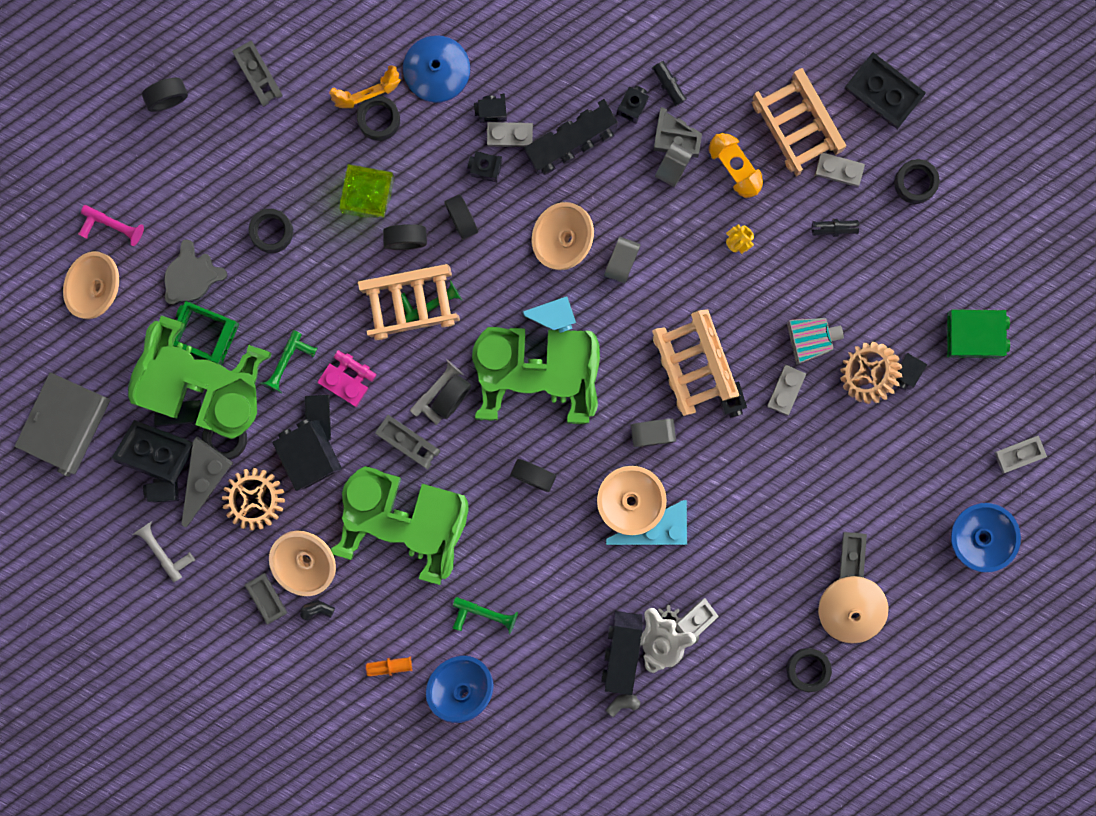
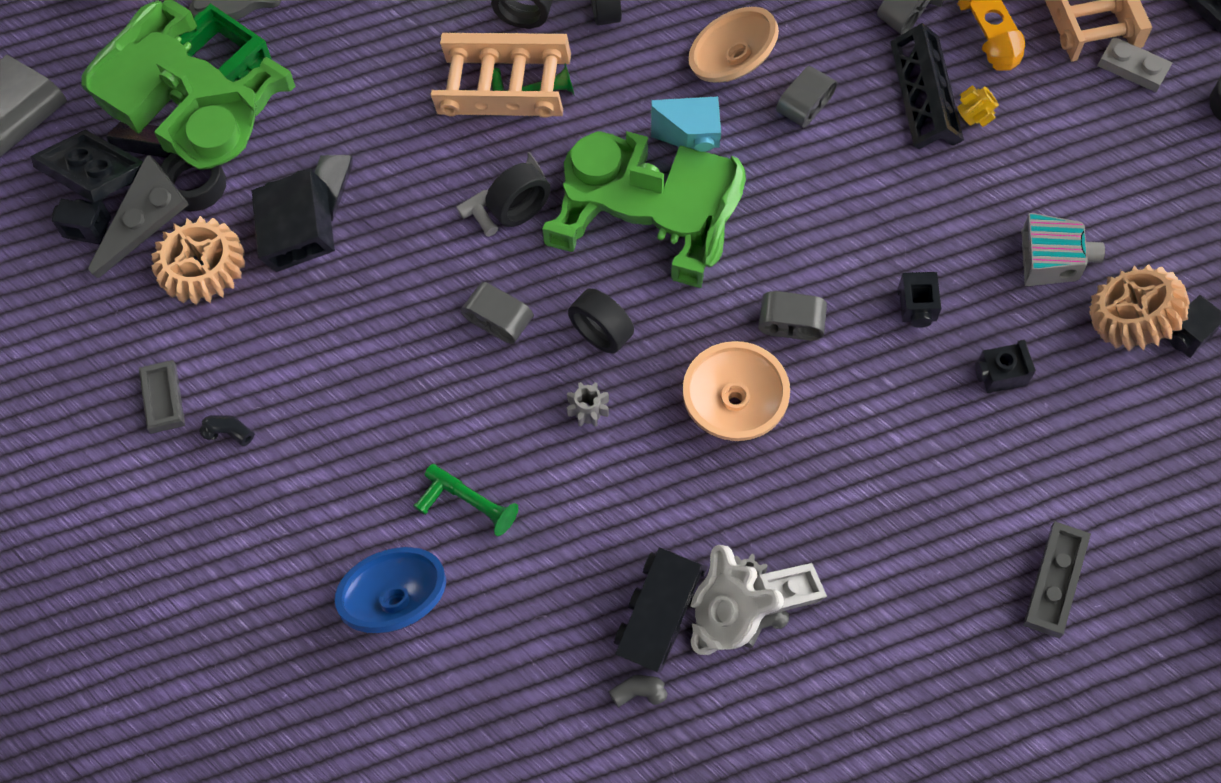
camera: 20 degrees right, 20 degrees down
(170, 568) = (33, 262): light grey piece -> none
(292, 344) = (333, 92): green piece -> none
(295, 570) = (215, 350): light nougat dish -> none
(344, 385) = (379, 158): dark pink plate -> none
(389, 666) = (299, 535): orange axle -> none
(406, 441) = (438, 243): dark grey plate -> none
(431, 531) = (362, 309): bright green animal -> none
(462, 483) = (497, 312): none -> dark grey beam
(541, 525) = (578, 405): none -> light grey gear
(669, 531) = (777, 453): medium azure wing -> none
(715, 243) = (937, 86): none -> black fence
(716, 365) = (909, 238): light nougat fence -> none
(786, 390) = (1003, 311): light grey plate -> none
(804, 433) = (998, 377): none -> black brick
(826, 667) = (978, 700): black tyre -> none
(835, 227) = (1116, 126): black pin -> none
(849, 597) = (1020, 635): light nougat dish -> none

